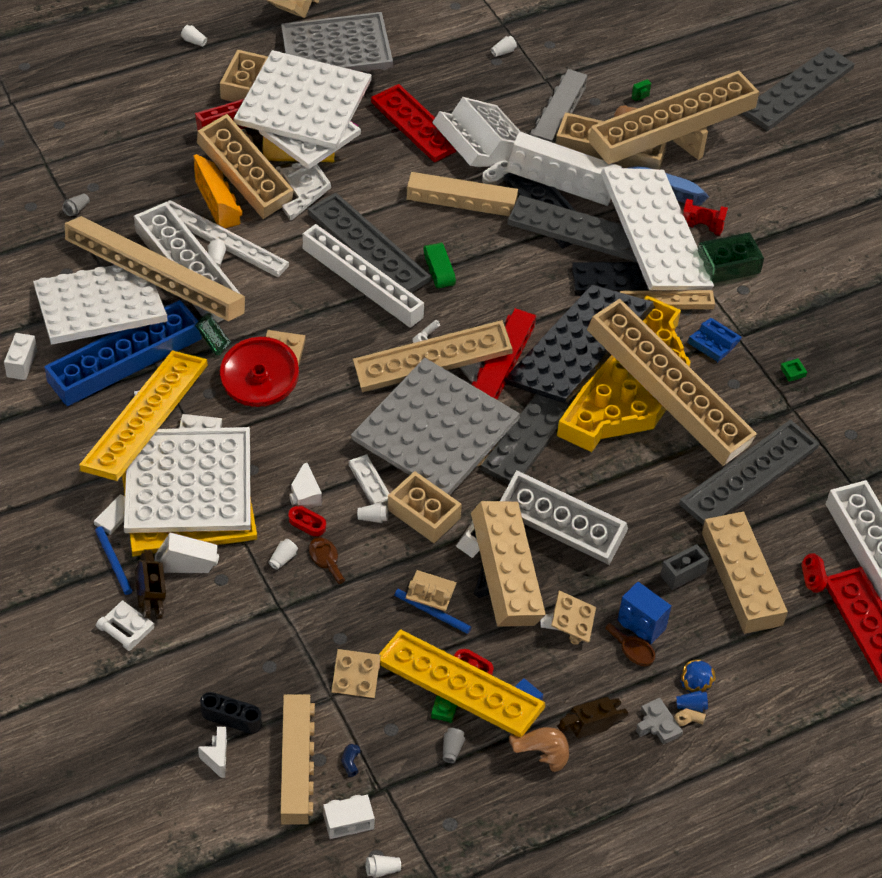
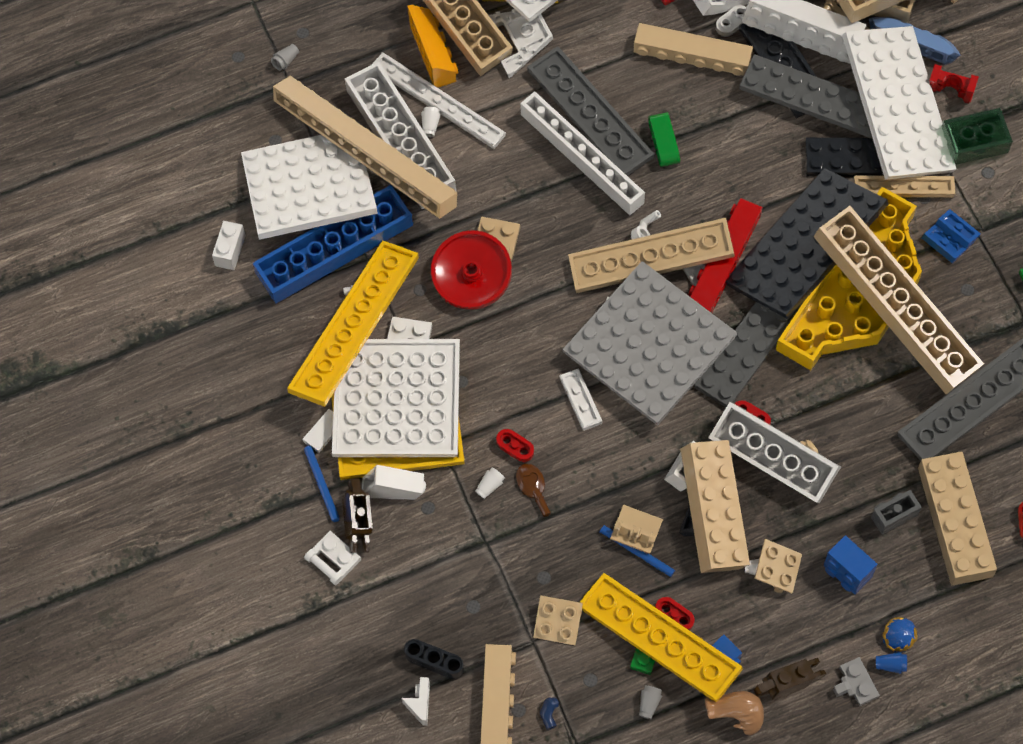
camera: 10 degrees right, 15 degrees up
(212, 333) = (424, 224): clear green tile -> none
(305, 489) = (514, 410): white slope -> none
(373, 513) = (584, 438): white cone -> none
(424, 507) = (634, 434): tan brick -> none
(634, 648) = (838, 599): reddish brown piece -> none
(687, 716) = (887, 677): tan arm -> none

